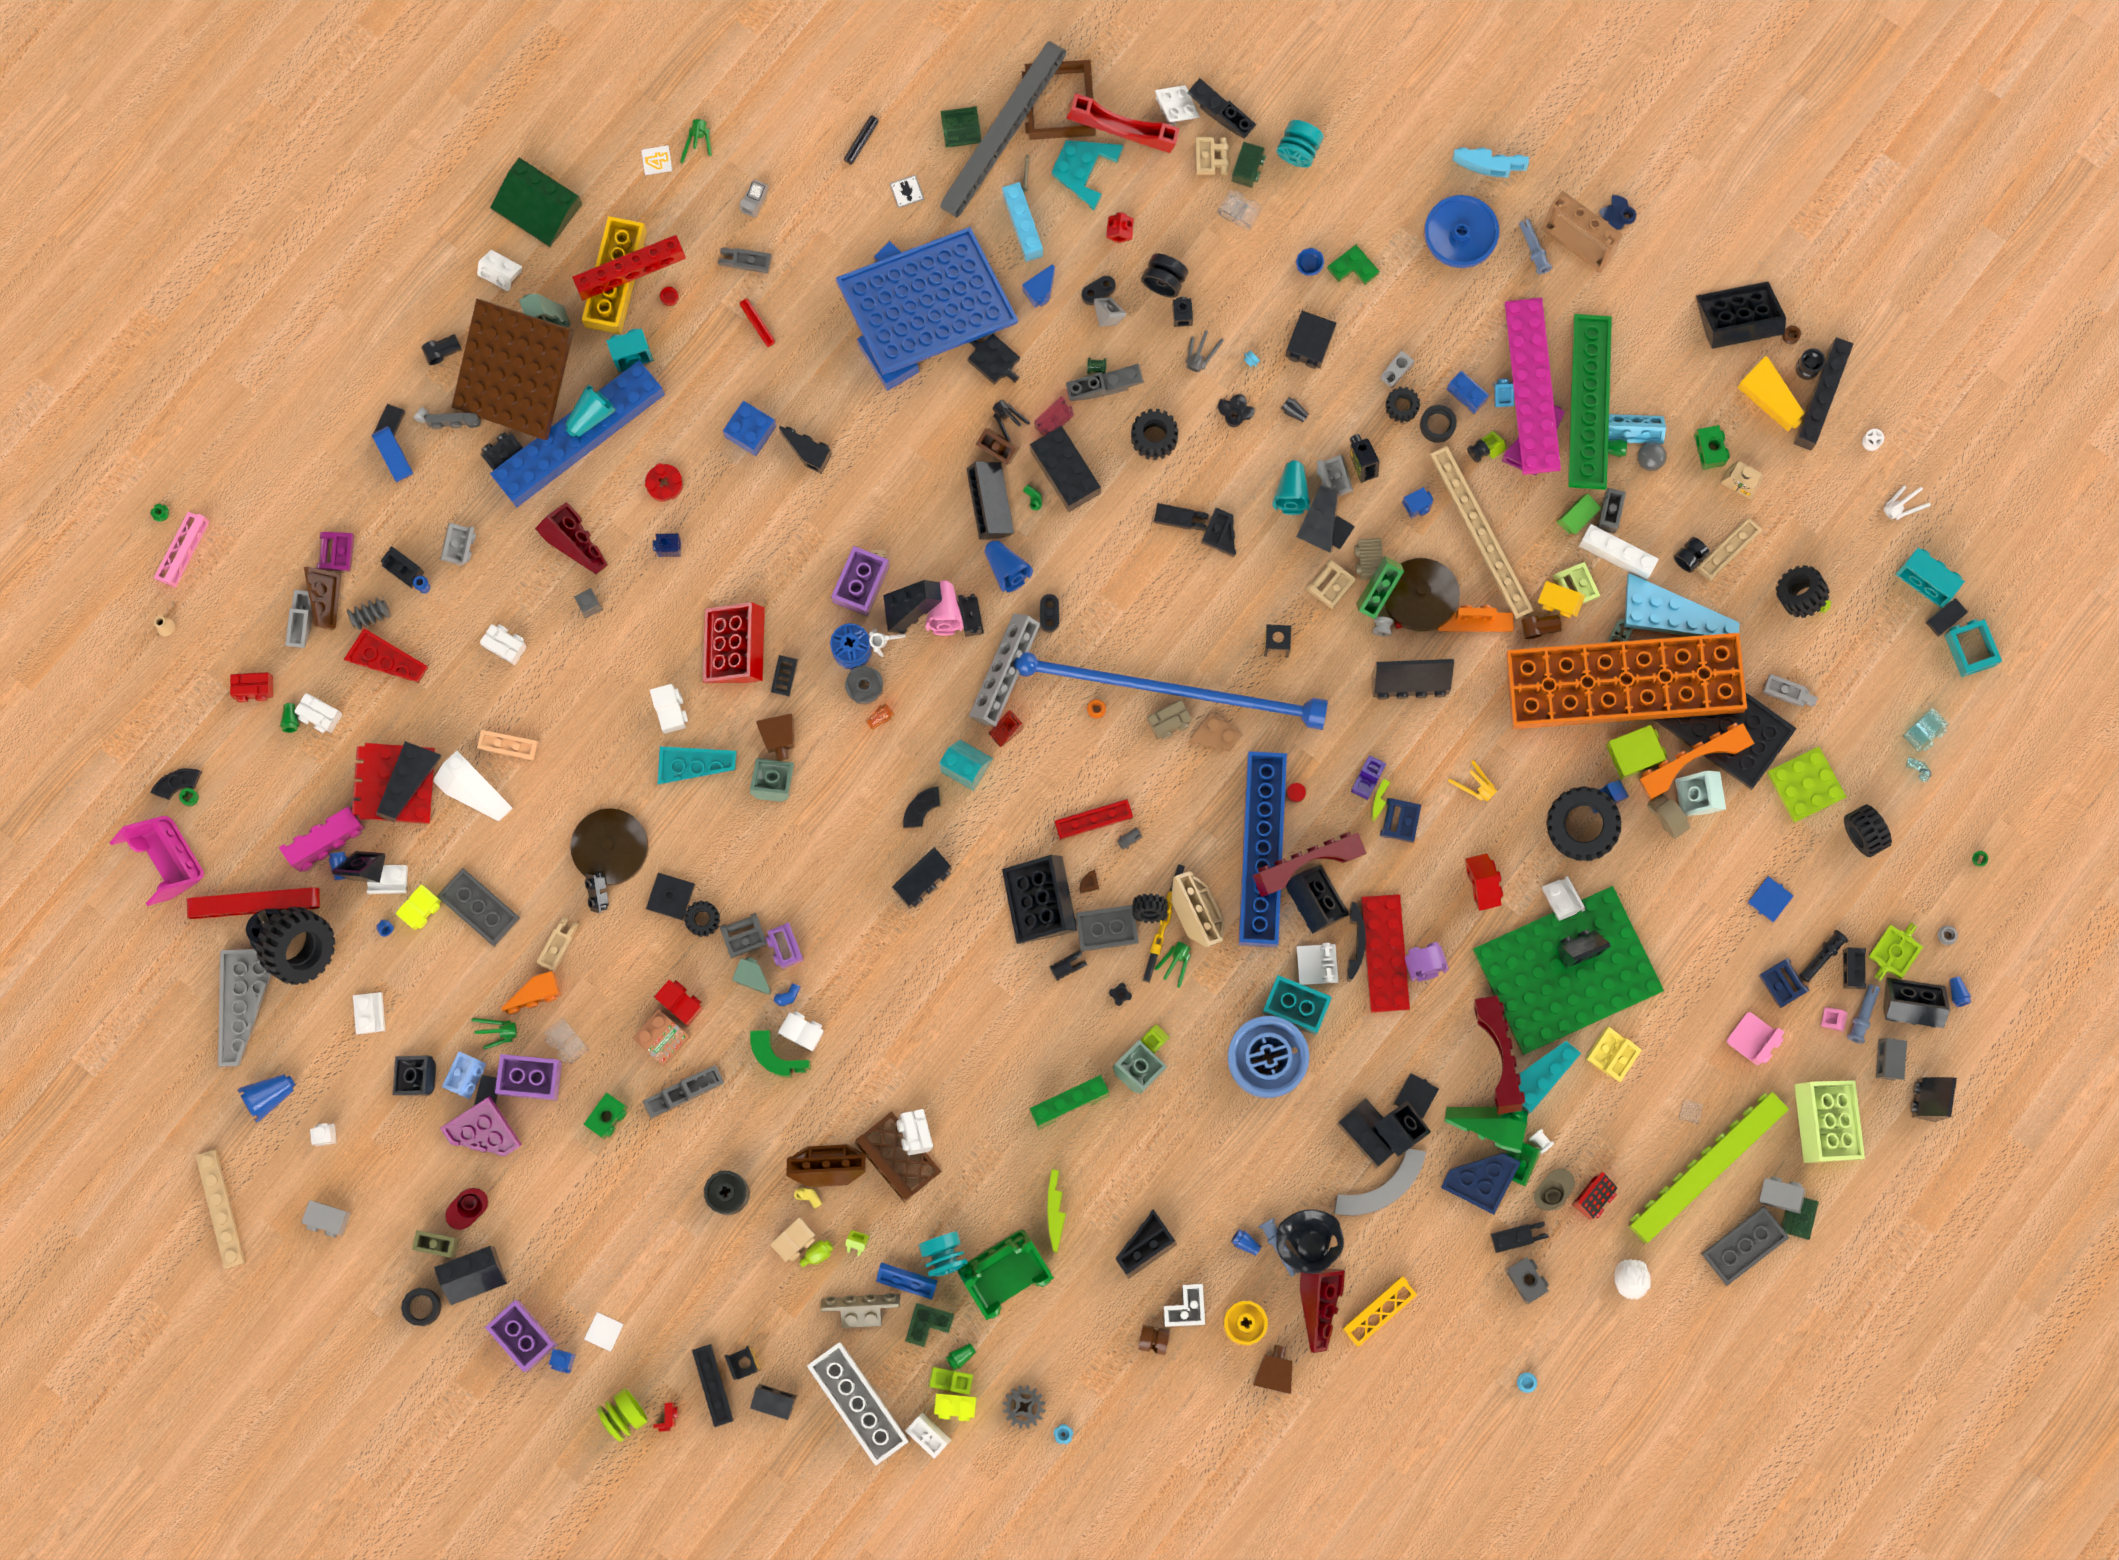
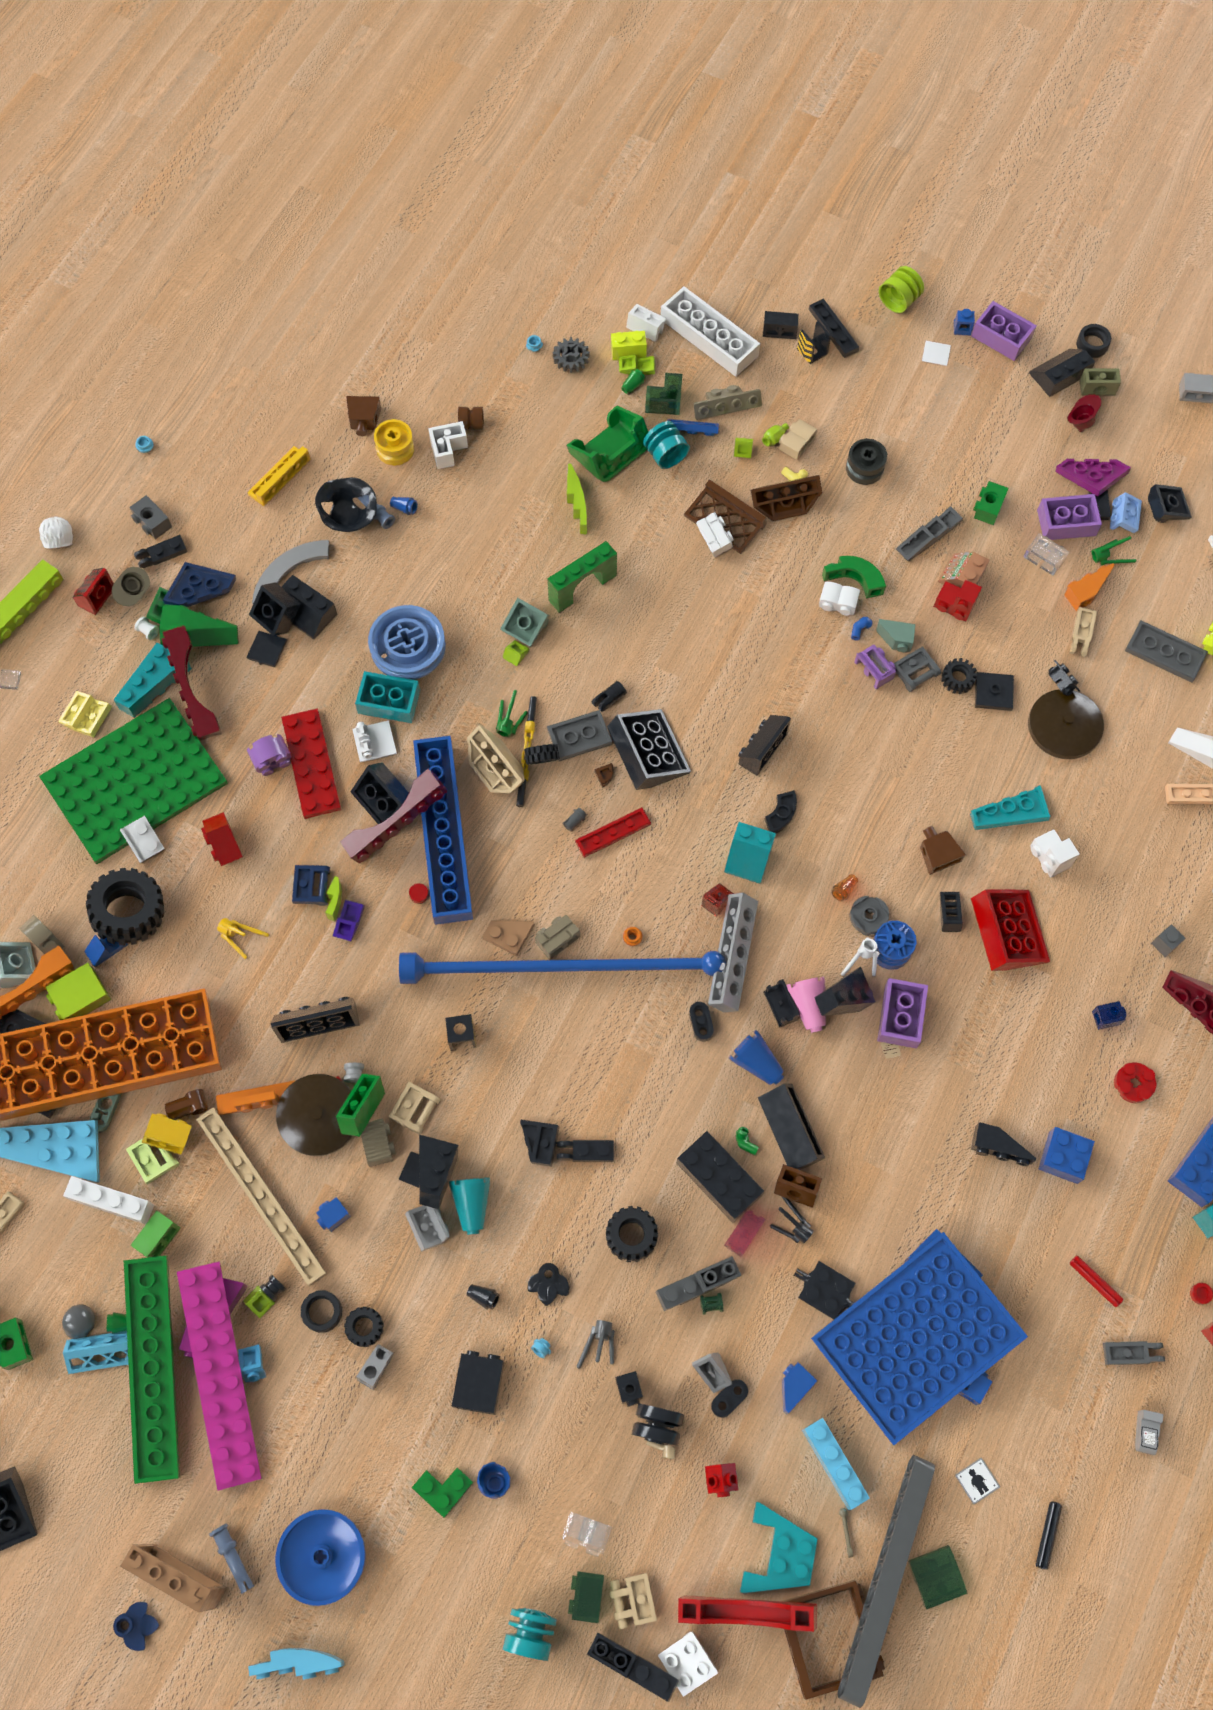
camera: 165 degrees right, 10 degrees down
(671, 1414) = (862, 299): red bracket -> none
(771, 780) = (933, 808): sand green slope -> none
(1120, 989) = (555, 677): black plate -> none
(1145, 1246) = (490, 483): black wedge -> none
(1319, 1301) = (332, 462): dark red wedge -> none
(1357, 919) = (338, 745): black slope -> none
(1364, 458) = (392, 1245): black torso -> none
(1467, 392) = (291, 1354): blue brick -> none
(1582, 948) = (116, 782): black slope -> none
(1611, 510) = (118, 1243): dark grey brick -> none
(1691, 554) = (28, 1213): black wheel -> none

